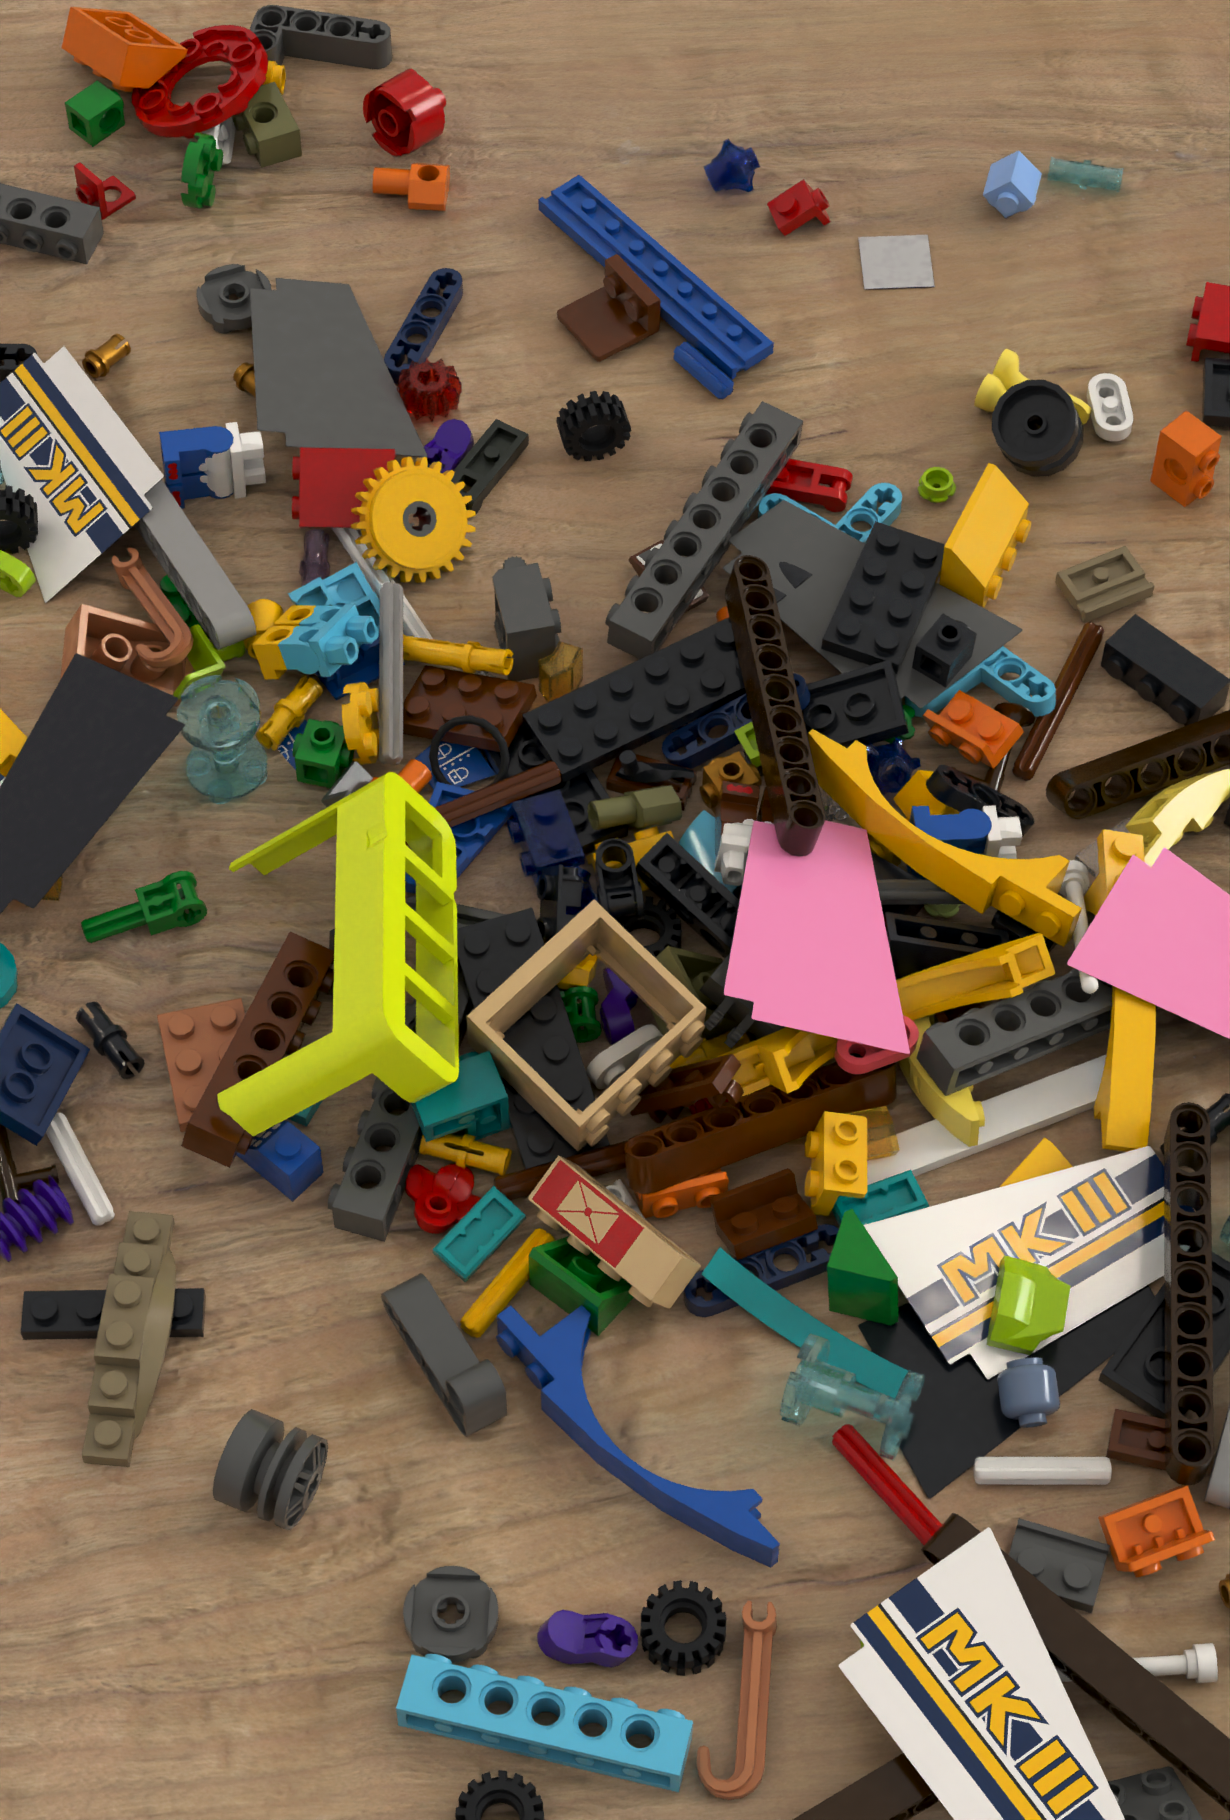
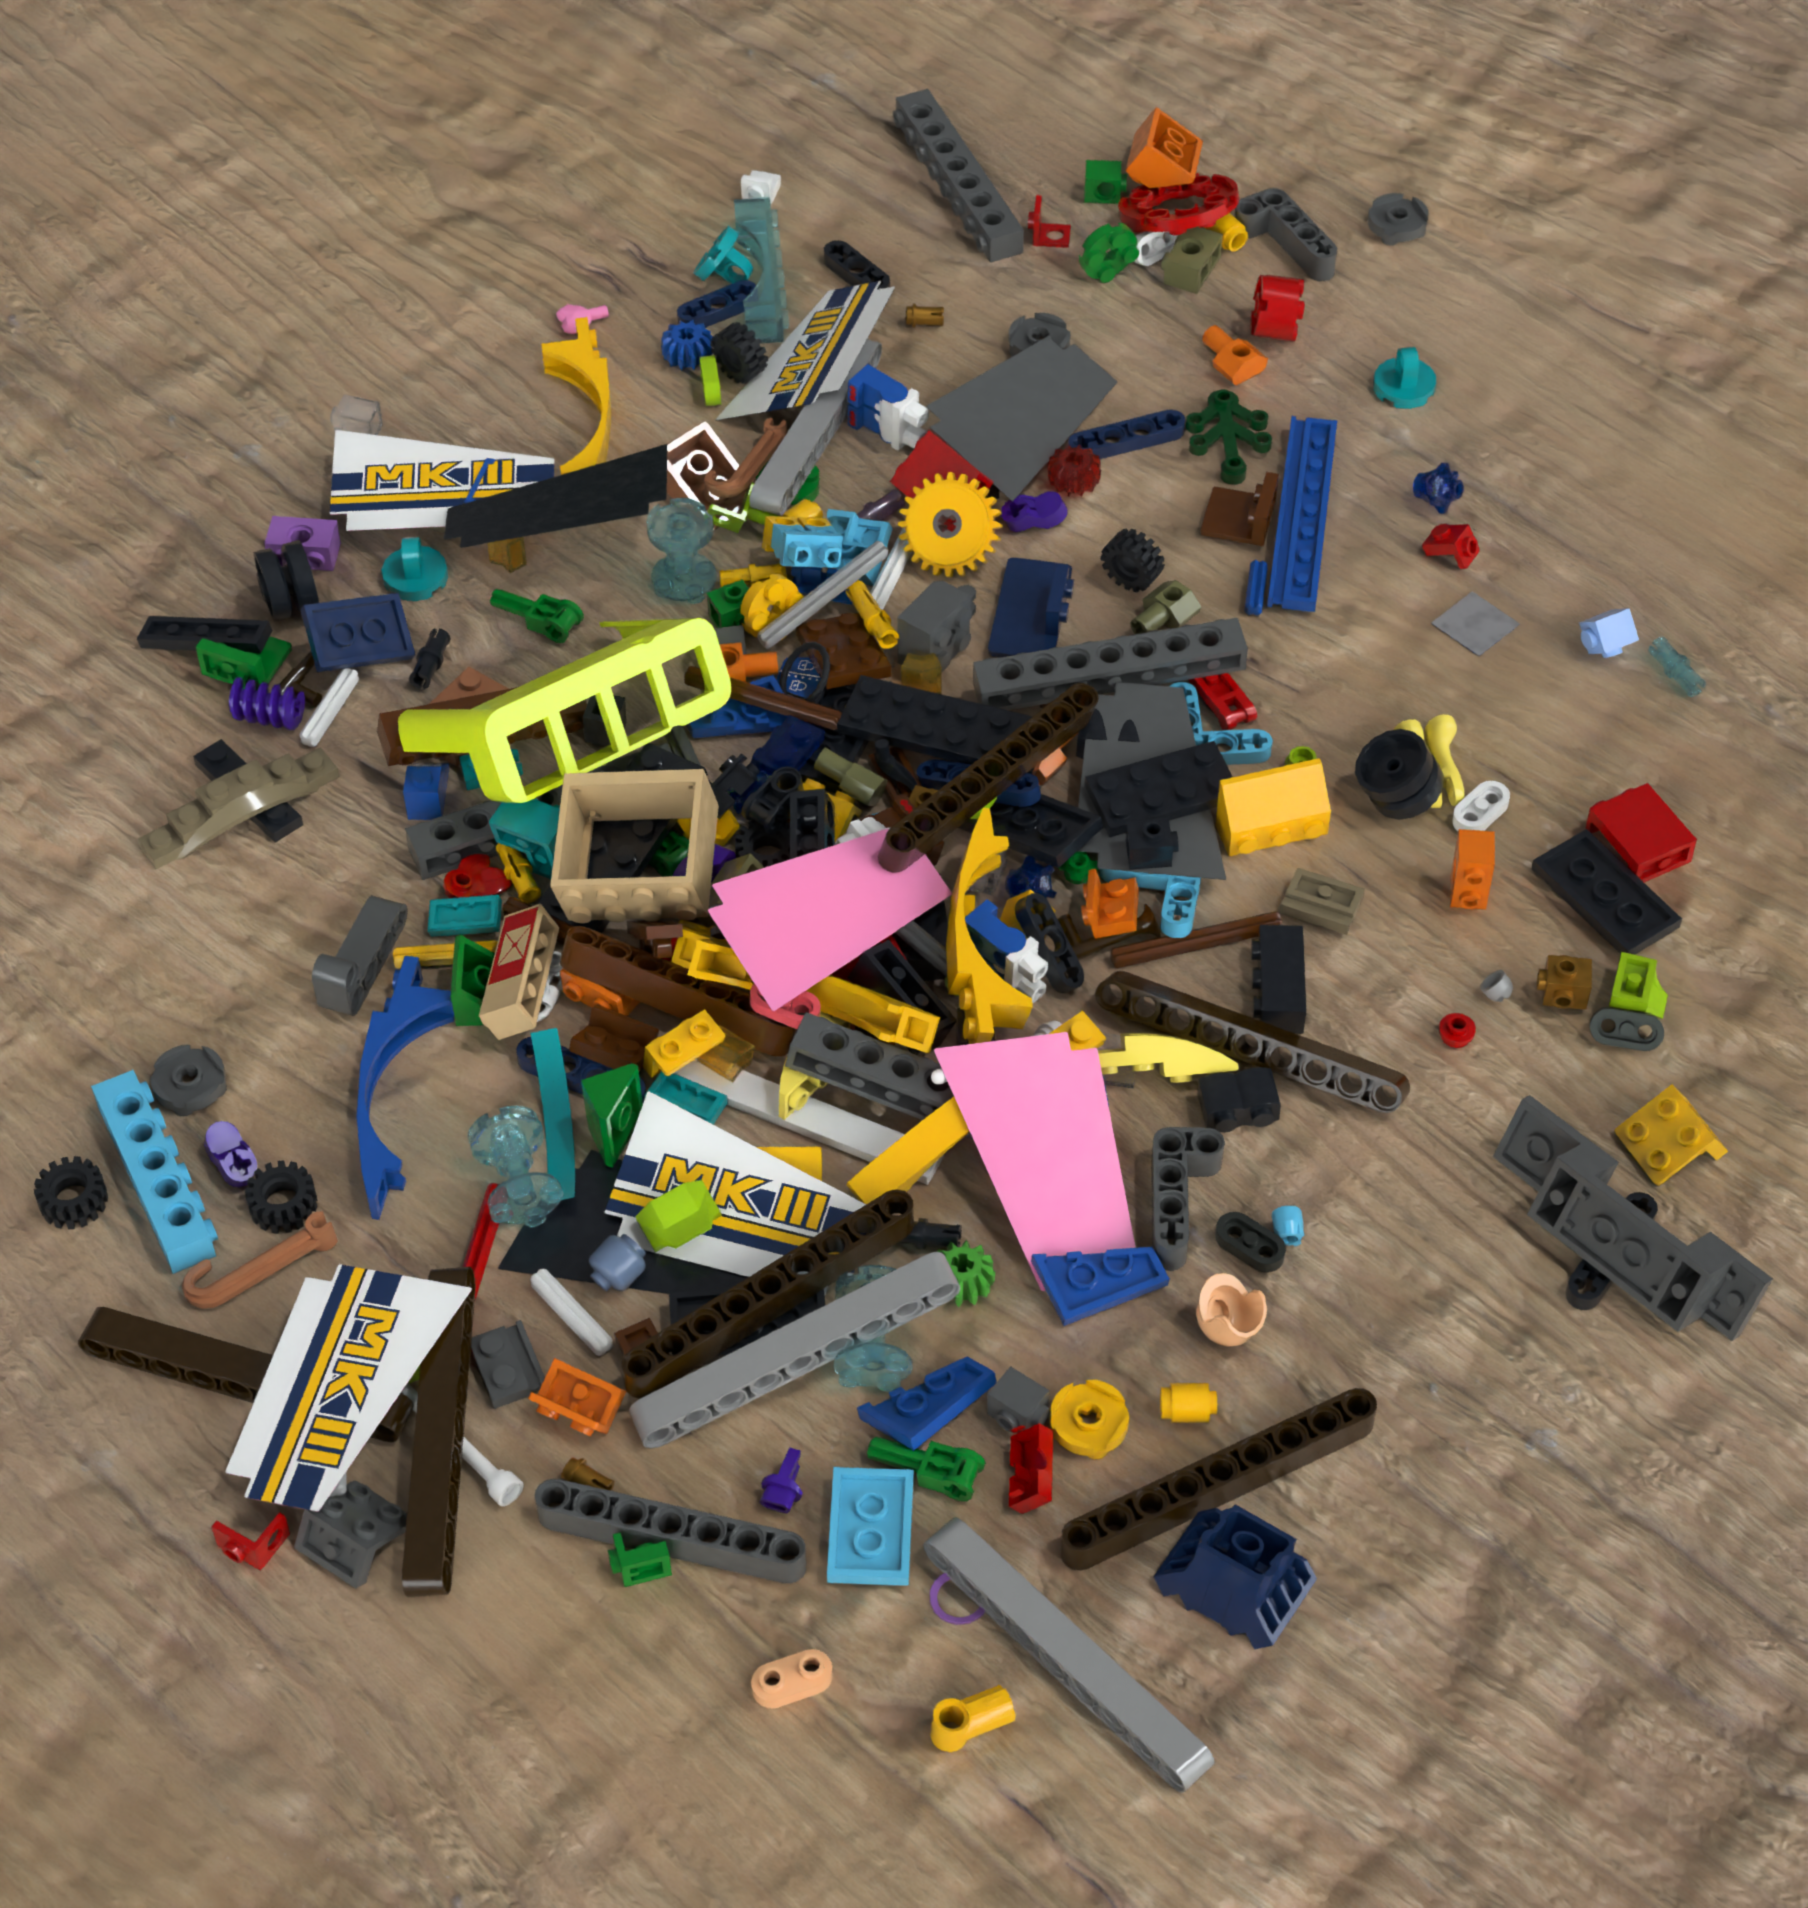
camera: 50 degrees right, 5 degrees down
(270, 1469) = (196, 921): dark grey wheel -> none
(465, 234) = (1224, 405): none -> dark green plant
(489, 461) = (1046, 536): pearl dark grey plate -> none
(563, 534) = (1030, 607): none -> dark blue bracket
(576, 98) = (1405, 380): none -> teal tile
(665, 443) = (1167, 605): none -> olive piece

